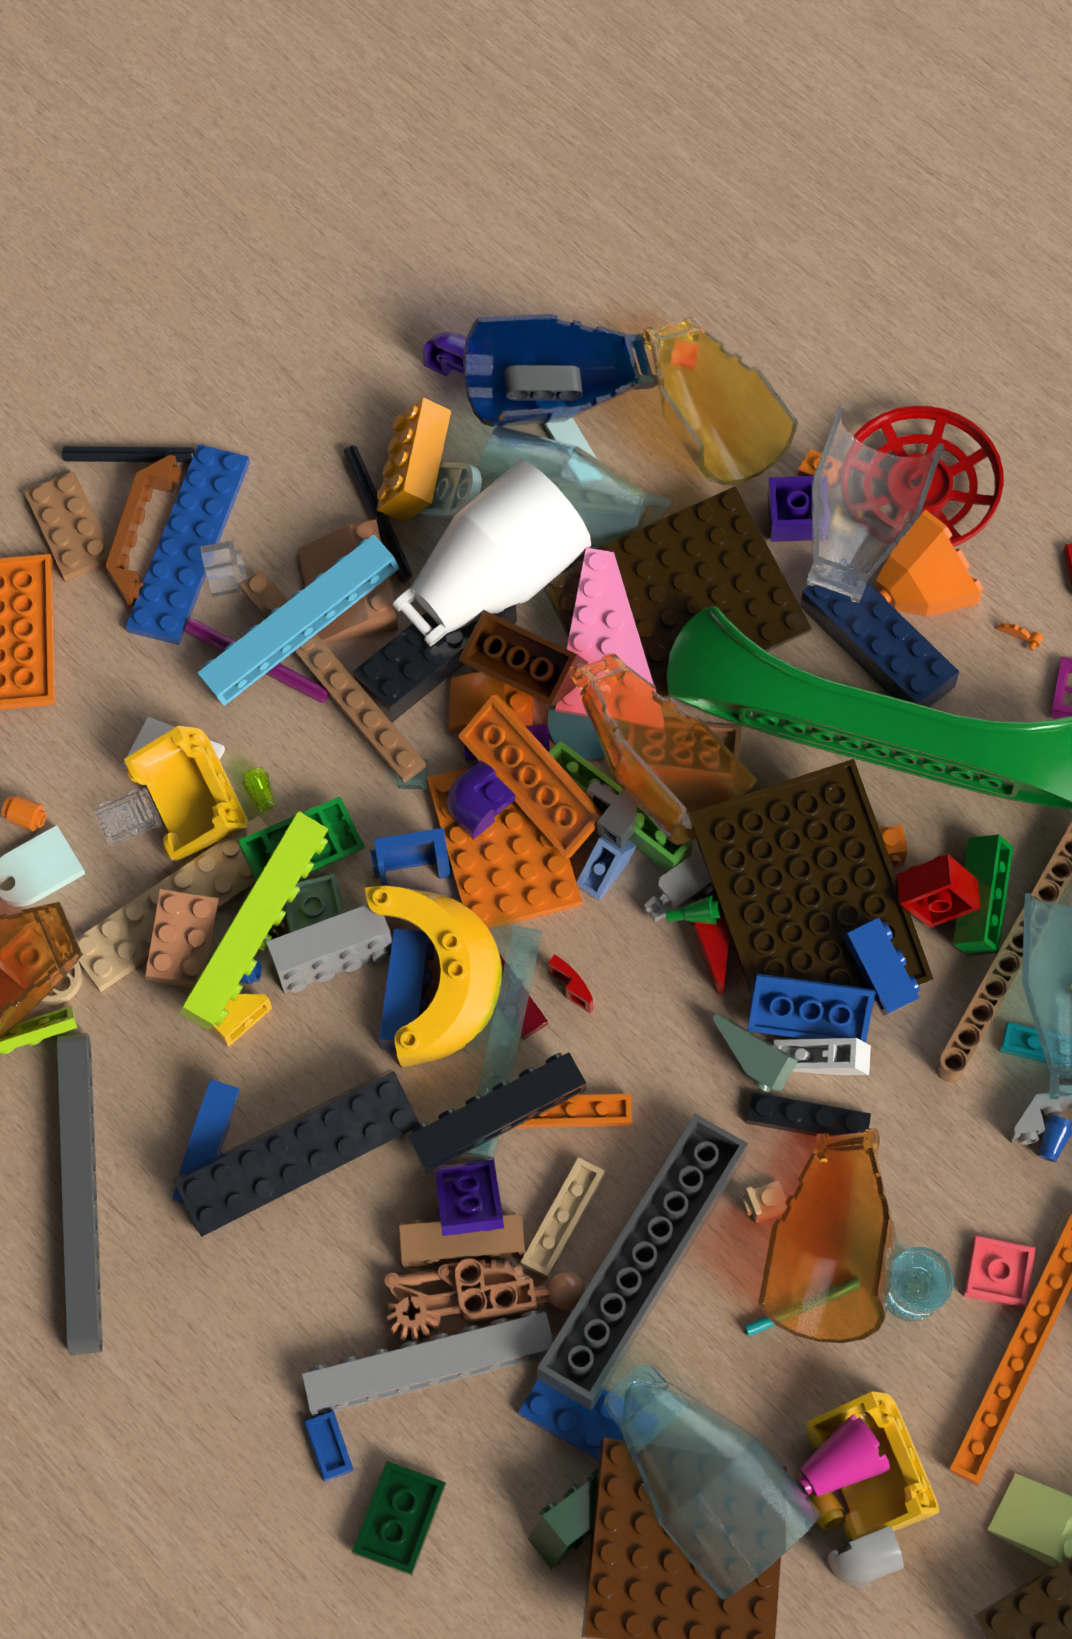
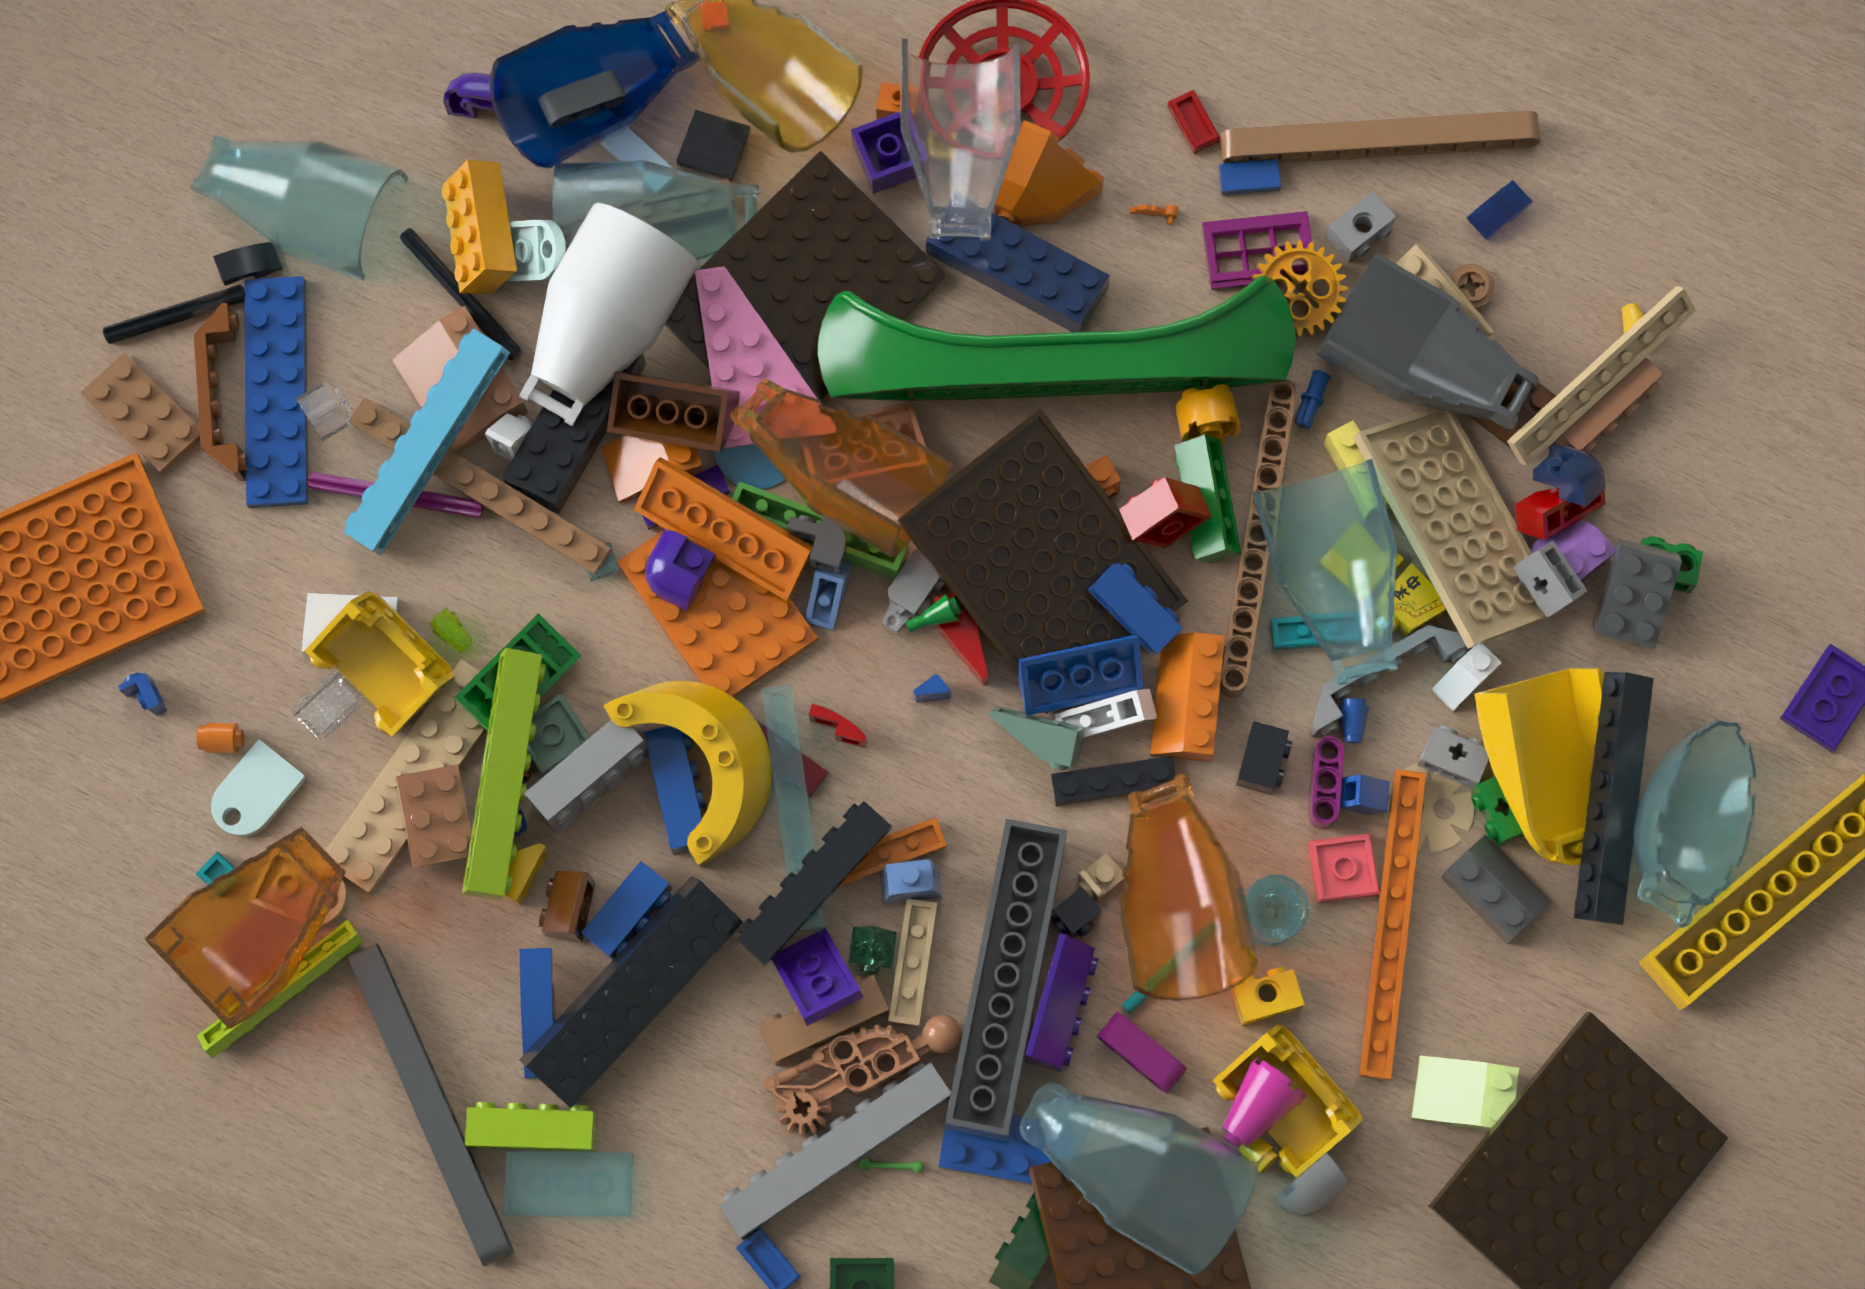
camera: 20 degrees left, 10 degrees up
(160, 1245) = (531, 1128): none -> lime brick
(174, 1308) = (568, 1184): none -> clear light blue tile
(206, 429) = (247, 261): none -> black slope
(270, 390) = (299, 195): none -> clear light blue windscreen
(270, 1058) = (568, 905): none -> reddish brown slope
(320, 1080) = (627, 910): none -> blue brick
(371, 637) = (508, 434): none -> white slope
(410, 851) = (630, 646): blue panel -> none
(451, 1388) = (865, 1164): none -> bright green hinge
(529, 1191) = (872, 948): none -> clear green brick
(588, 1141) = (910, 880): none -> medium blue torso
(643, 458) = (713, 145): none -> black tile
(668, 980) = (932, 690): none -> blue slope
(685, 1301) = (1060, 1003): none -> dark purple slope
(730, 1226) = (1076, 914): none -> black brick
(747, 1375) = (1141, 1052): none -> magenta beam
(870, 1374) = (1286, 991): none -> yellow brick
(904, 1065) = (1188, 697): none -> orange slope
(956, 1144) = (1263, 758): none -> black brick
(1011, 817) = (1208, 413): none -> light orange brick
(1012, 1173) = (1330, 768): none -> magenta beam
(1042, 1209) = (1364, 794): none -> blue brick

